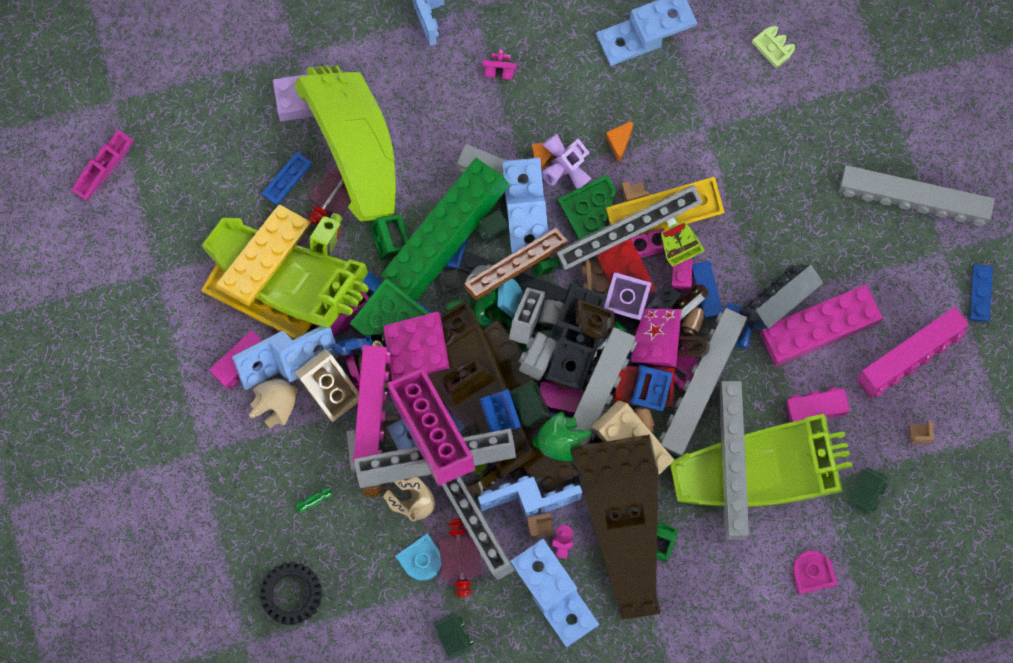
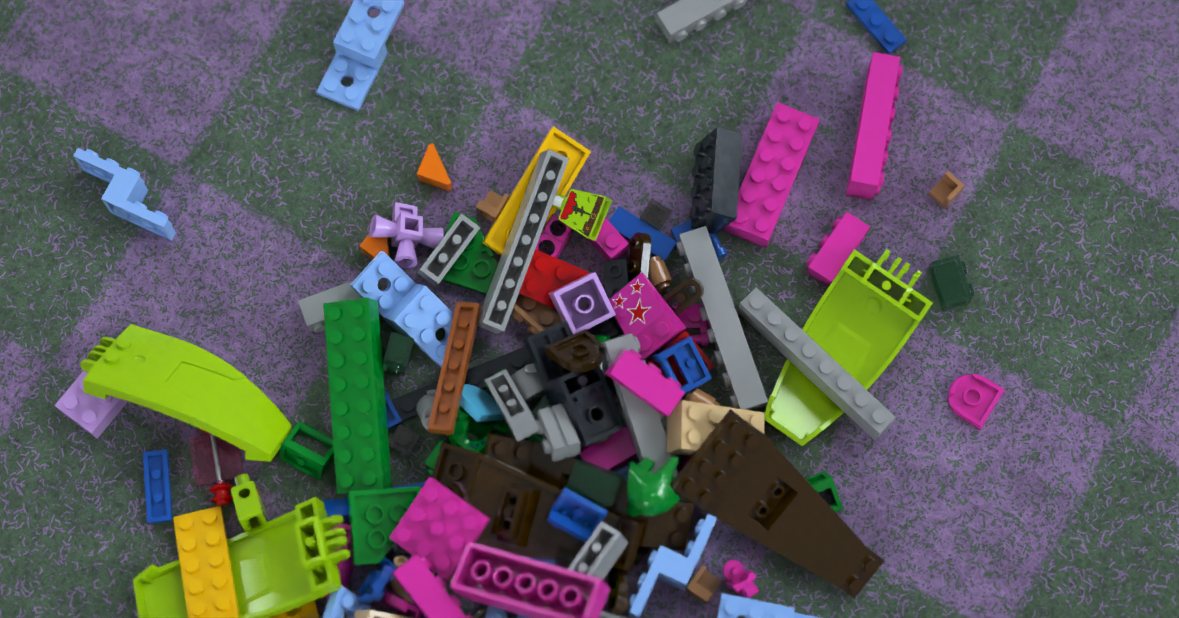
camera: 45 degrees left, 0 degrees up
(508, 68) = (267, 196): dark pink hips -> none
(547, 266) = (480, 344): green plate -> none
(580, 193) = (448, 250): none -> light grey brick
(615, 372) = (645, 382): none -> dark pink brick
(726, 285) = (655, 214): none -> clear smoke plate

